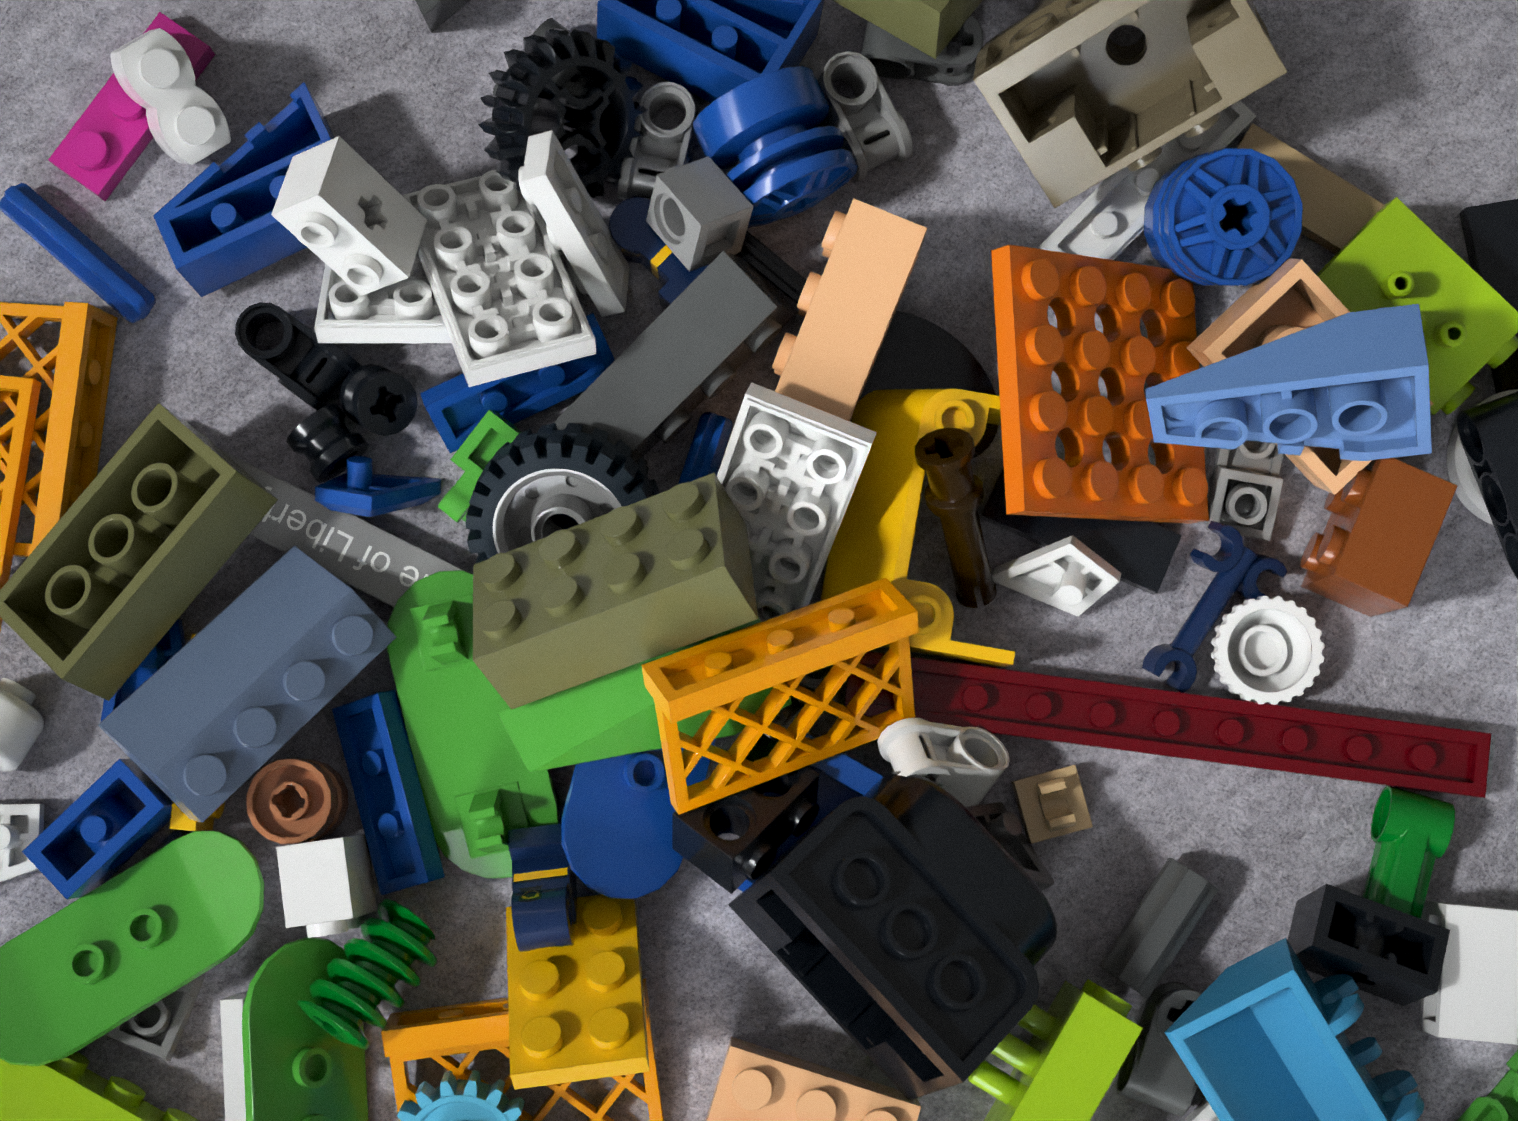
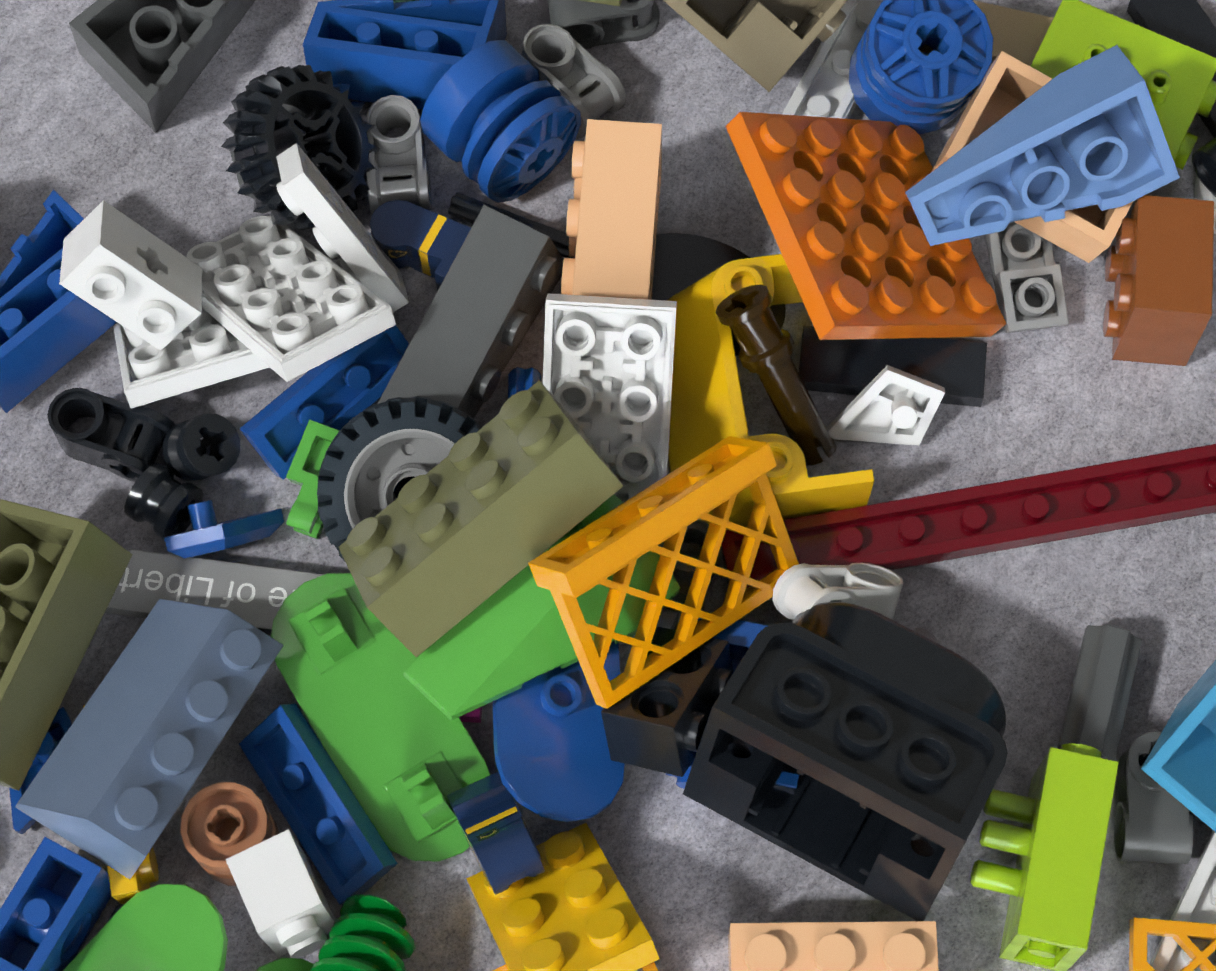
camera: 15 degrees left, 15 degrees down
(698, 212) = (449, 187): light grey brick -> none
(1051, 804) = (958, 616): tan tile -> none
(1236, 570) = (1049, 361): dark blue bar -> none
(1267, 650) = (1103, 413): white hat -> none

